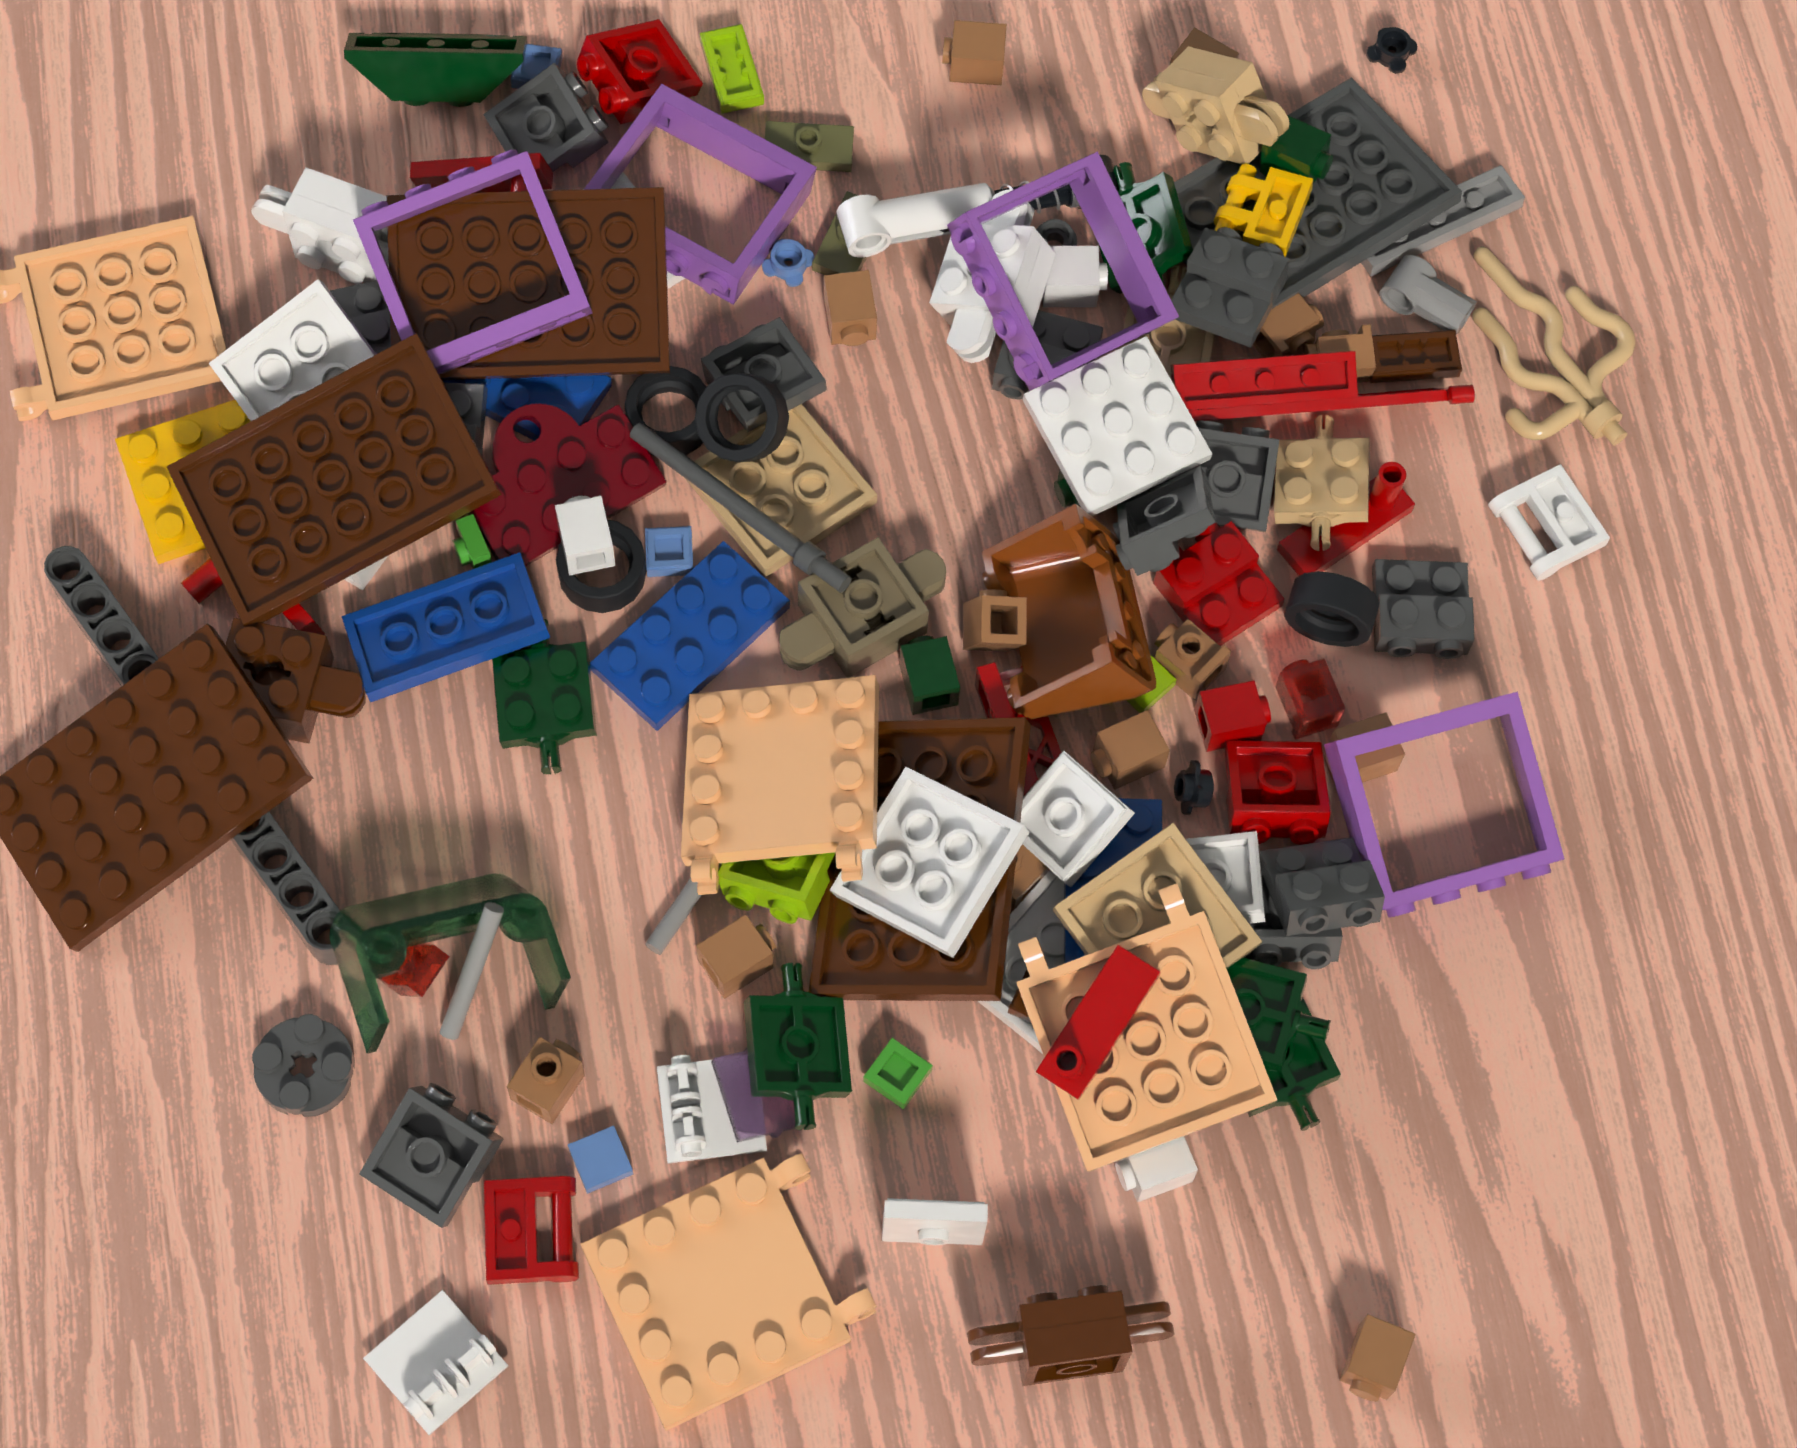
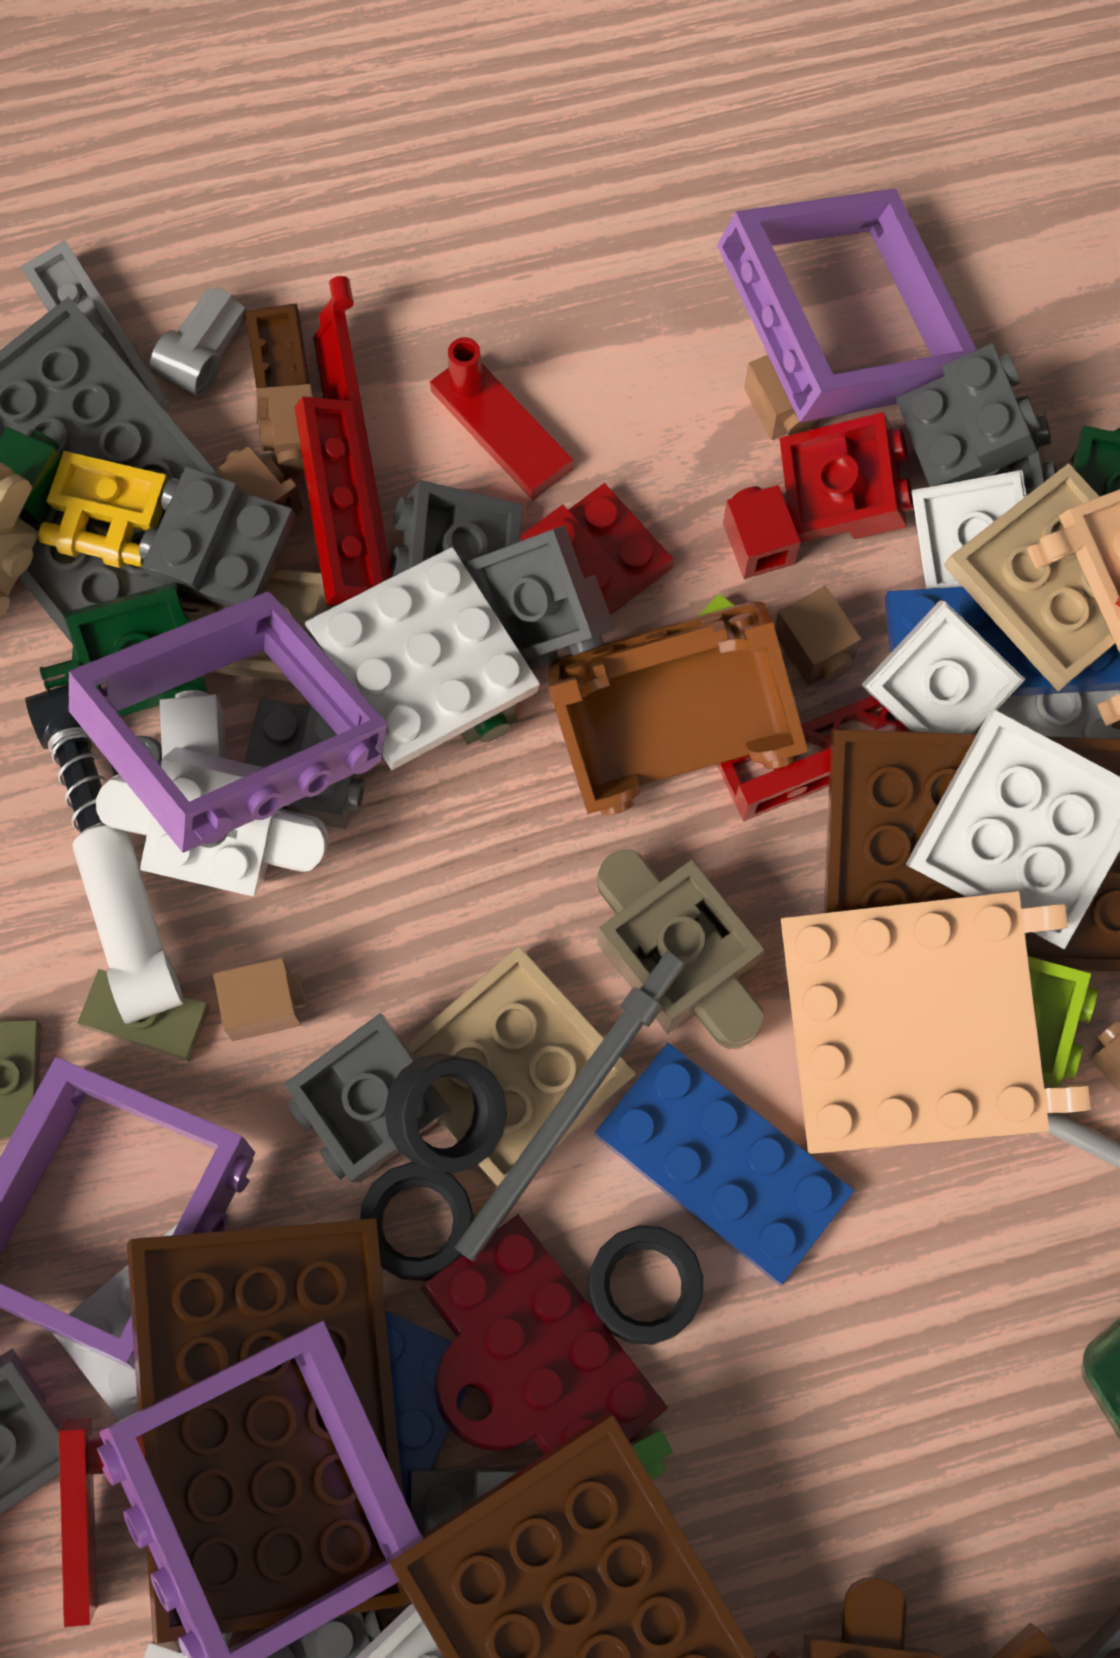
camera: 90 degrees left, 5 degrees up
(445, 627) = (763, 1481): blue plate -> none
(544, 698) = (830, 1340): dark green plate -> none
(585, 534) = (630, 1301): white brick -> none
(668, 551) = (610, 1202): medium blue tile -> none
(792, 251) = (179, 1073): medium blue plate -> none
(929, 674) = (750, 866): dark green brick -> none
(994, 622) = (682, 791): medium nougat brick -> none
(1193, 787) = (853, 567): black plate -> none
(1196, 670) = (704, 560): medium nougat brick -> none
(1317, 683) = (729, 435): clear red brick -> none
(1322, 481) = (456, 440): tan plate -> none
(1331, 609) = (625, 422): black tyre -> none
(1422, 608) = (599, 342): dark grey plate -> none
(1561, 514) = (473, 203): white plate -> none
(1578, 391) = (311, 186): tan plant -> none

